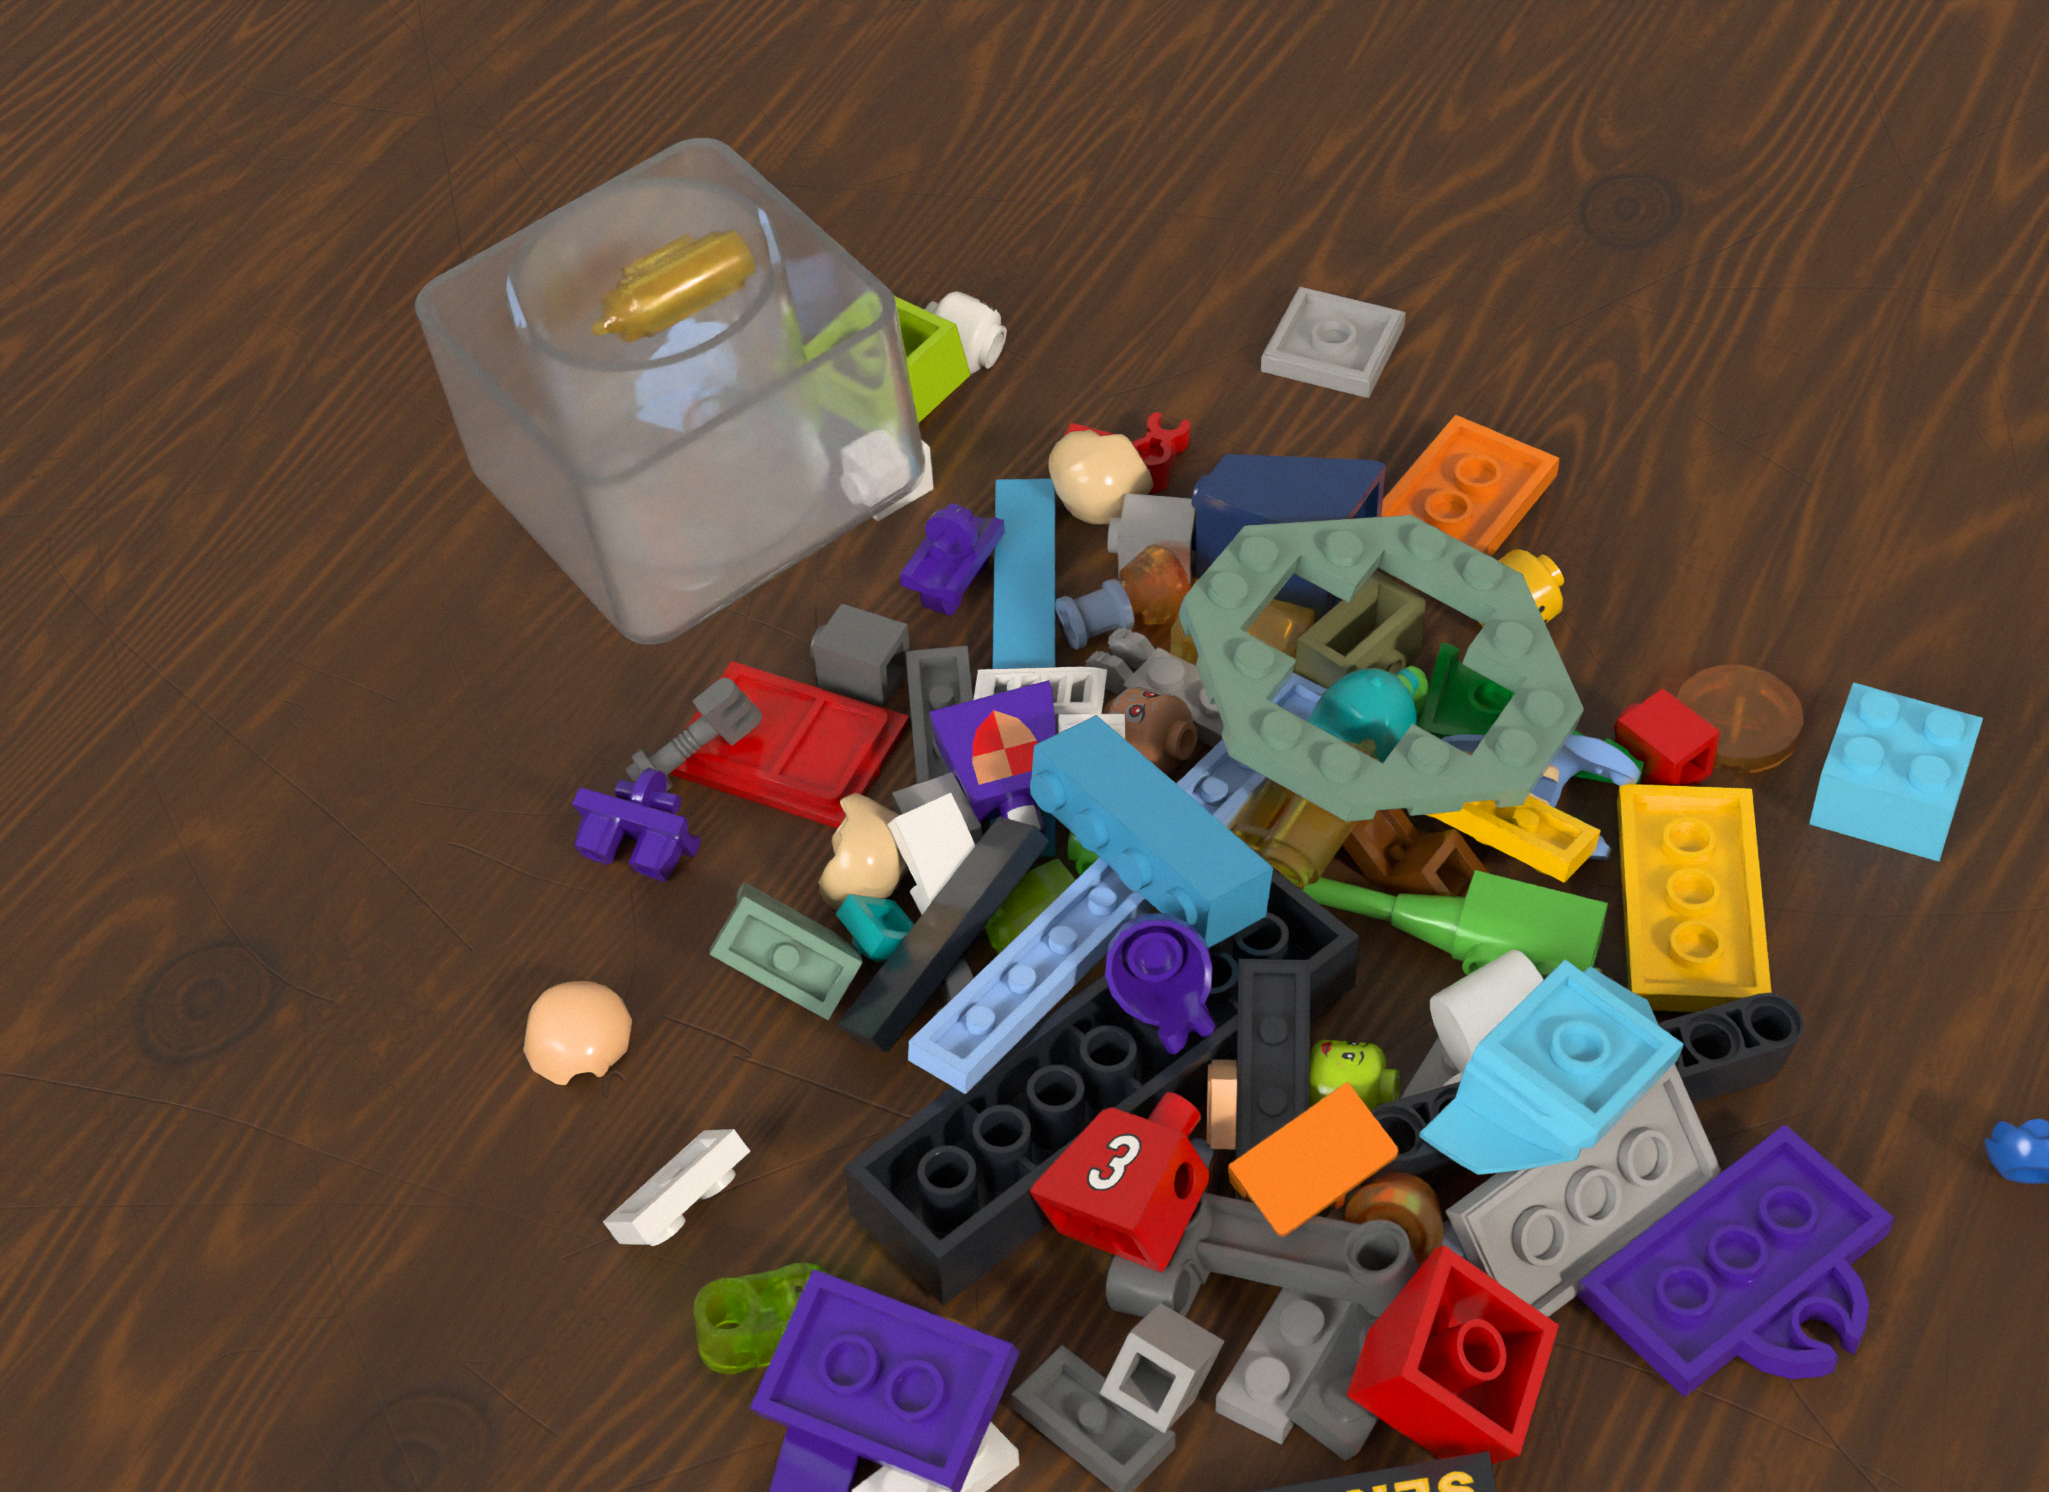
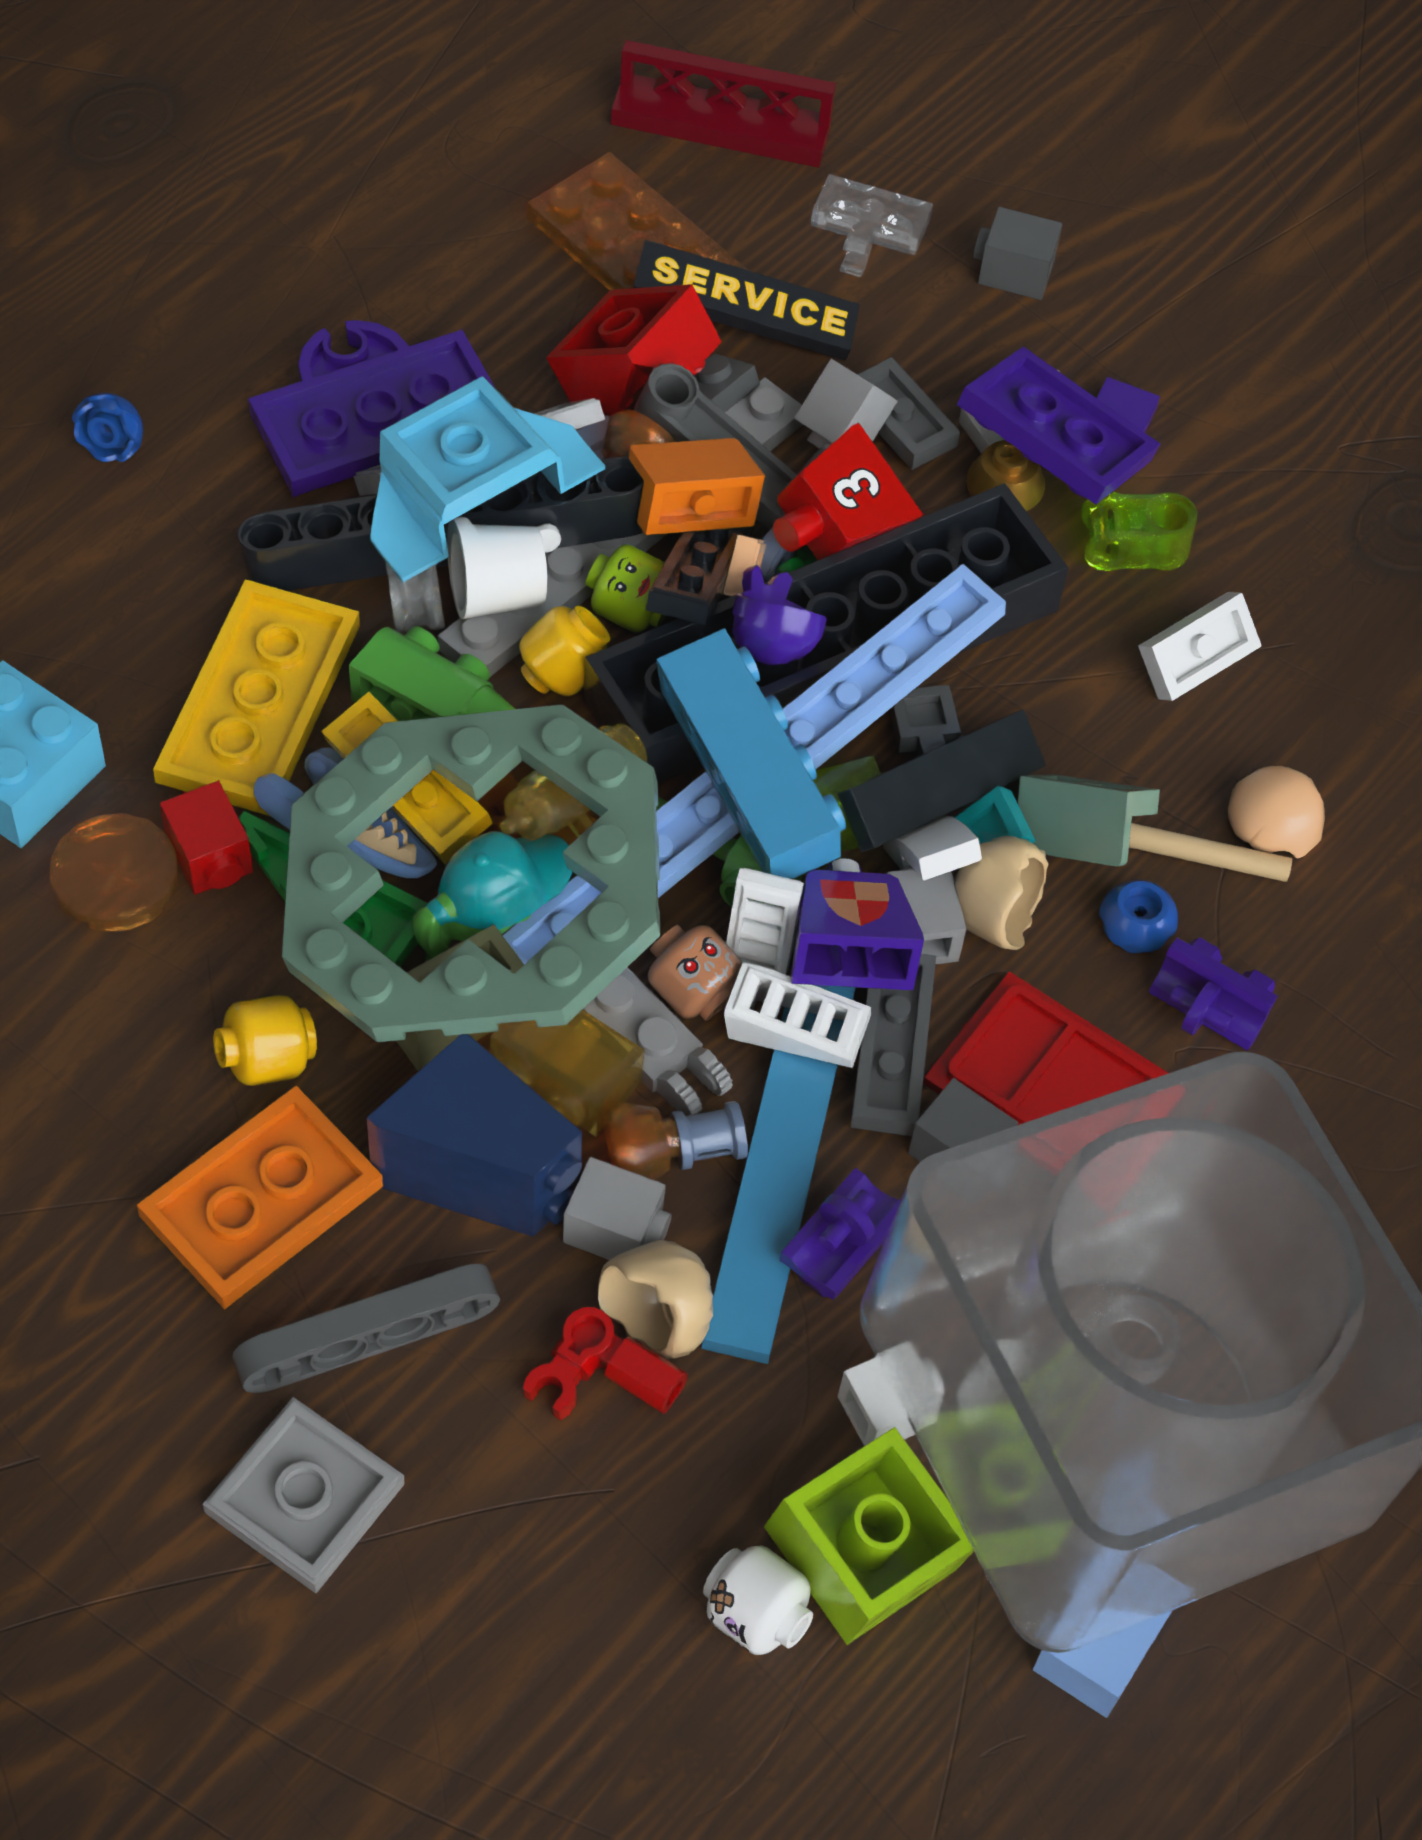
camera: 175 degrees left, 10 degrees up
(666, 980) = (1210, 852): none -> tan bar
(674, 284) = (1162, 1241): clear yellow piece -> none
(699, 894) = (1134, 932): none -> blue plate
(723, 712) = (1131, 1056): dark grey hinge -> none
(1380, 403) = (365, 1328): none -> dark grey beam
(1390, 994) = (557, 649): none -> yellow head

